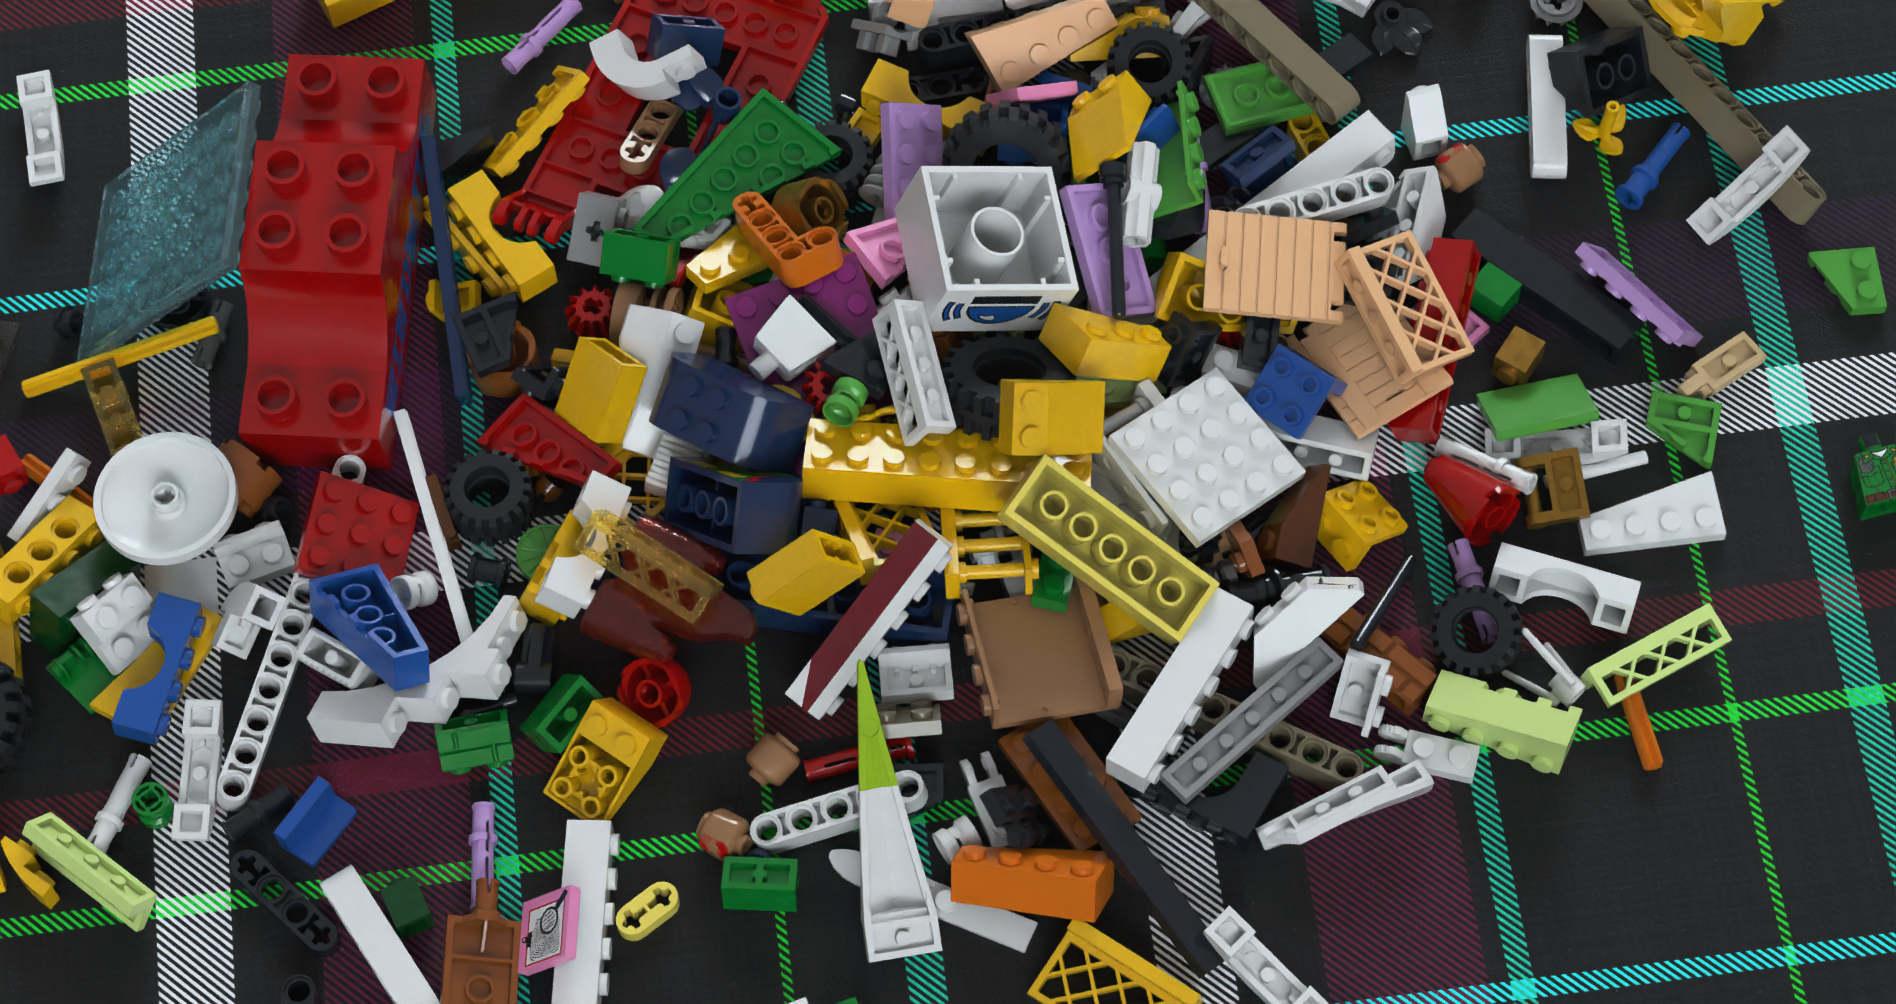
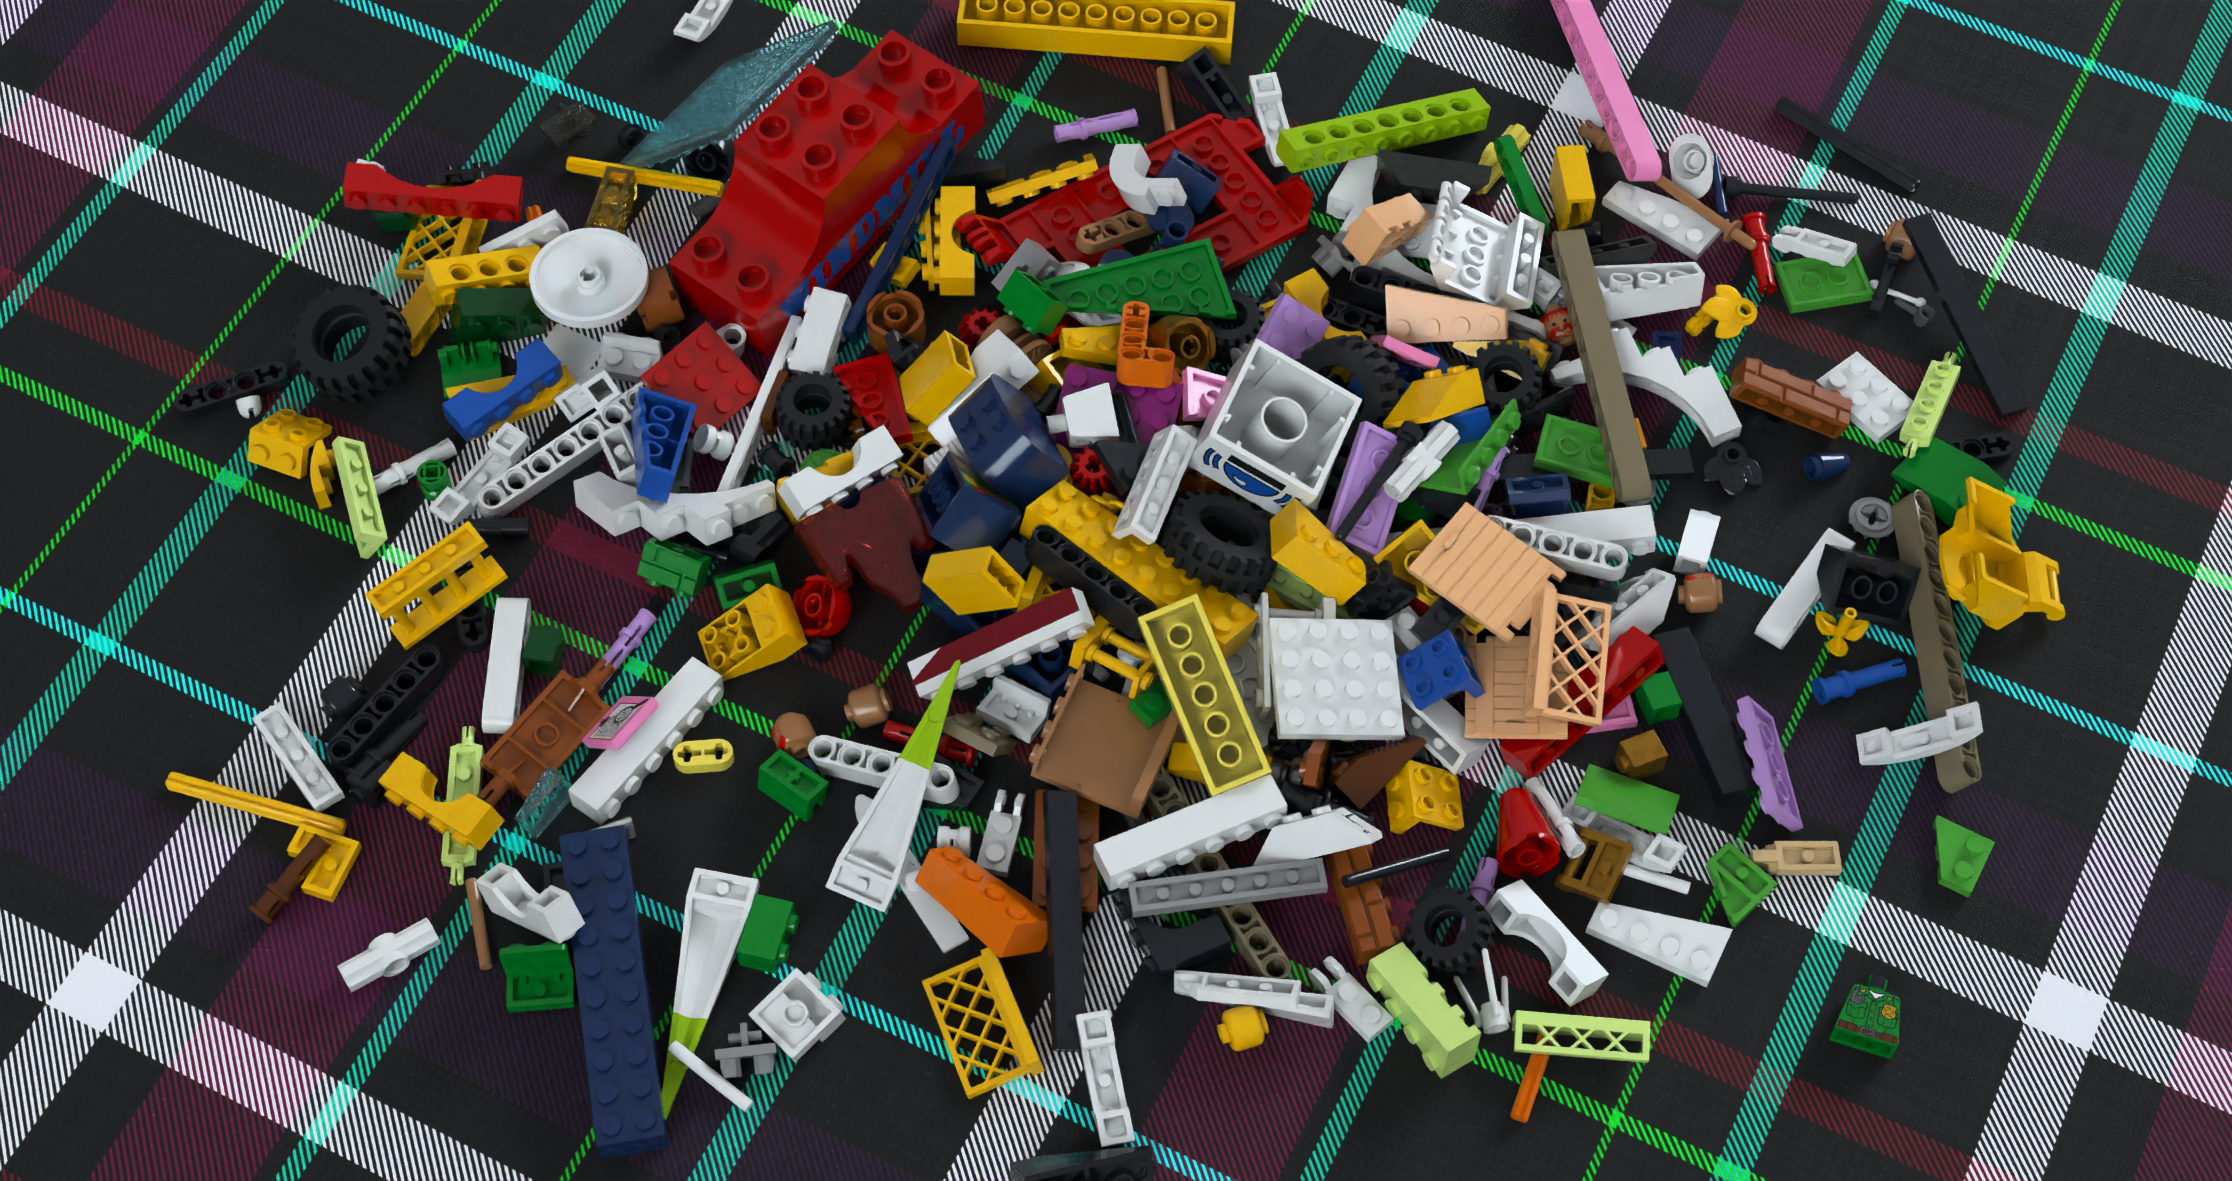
camera: 30 degrees right, 5 degrees down
(116, 621) = (497, 341): white plate -> none
(257, 910) = (426, 571): none -> yellow fence
(314, 823) = (529, 556): blue panel -> none
(435, 415) = (819, 332): none -> white wedge
(489, 333) = (892, 297): black wing -> none
(656, 554) = (879, 505): clear yellow fence -> none
(680, 734) = (819, 649): none -> black plate
(844, 403) = (1094, 478): bright green wheel -> none
(903, 501) = (1077, 569): none -> black beam
(1017, 812) = (1007, 841): black plate -> none
(1051, 417) = (1229, 575): yellow slope -> none
(1356, 843) = (1243, 1027): none -> yellow head
(1360, 690) = (1329, 919): white bracket -> none

